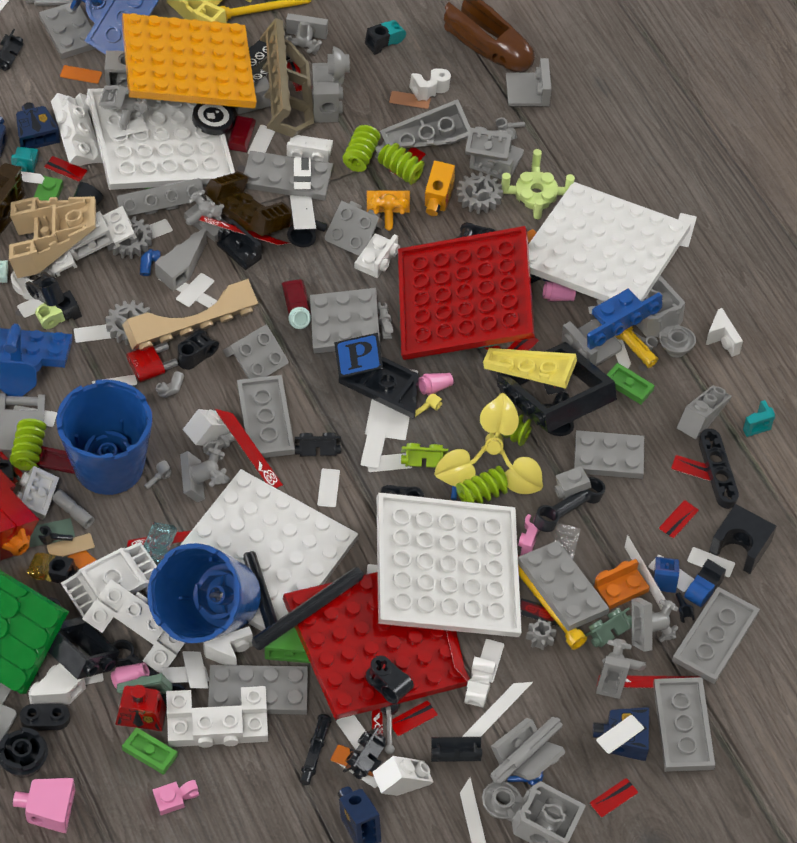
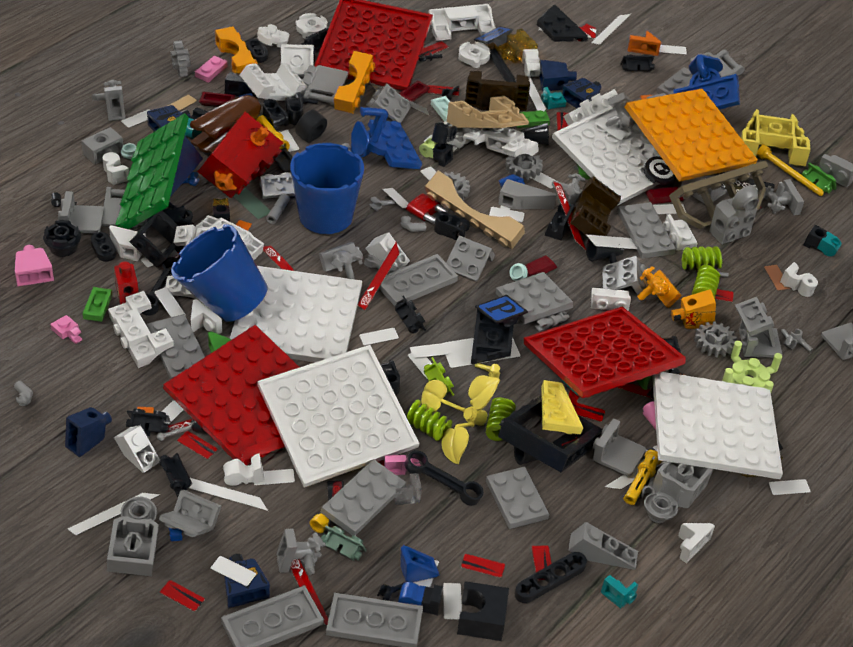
camera: 65 degrees right, 10 degrees down
(49, 537) = (249, 204): black hand -> none
(66, 548) = (248, 218): tan sticker -> none
(129, 673) = (151, 272): bright pink cone -> none
(156, 682) = (144, 281): sand green plate -> none
(159, 197) = (562, 162): light grey bracket -> none
(159, 540) = (270, 254): clear light blue bracket -> none
(163, 472) = (335, 243): light grey hand -> none
(195, 669) = (176, 308): white sticker -> none
(265, 606) = (255, 318): black axle -> none
(302, 173) = (649, 233): white sticker -> none
(307, 608) = (245, 337): black axle -> none
(317, 743) = (141, 393): black piece -> none
(388, 681) = (206, 401): black piece -> none
(434, 382) = (510, 364): bright pink cone -> none
(435, 127) = (748, 286): light grey wedge -> none
(526, 750) = (190, 513): light grey axle -> none
(541, 634) = (310, 497): light grey gear -> none
(571, 482) = (466, 472): light grey bracket -> none
(620, 314) = (642, 444): blue bracket -> none
(621, 584) = (388, 538): orange bracket -> none
(630, 383) = (595, 489): bright green plate -> none
(646, 621) = (351, 559): light grey piece -> none
(654, 589) = (396, 561): white sticker -> none

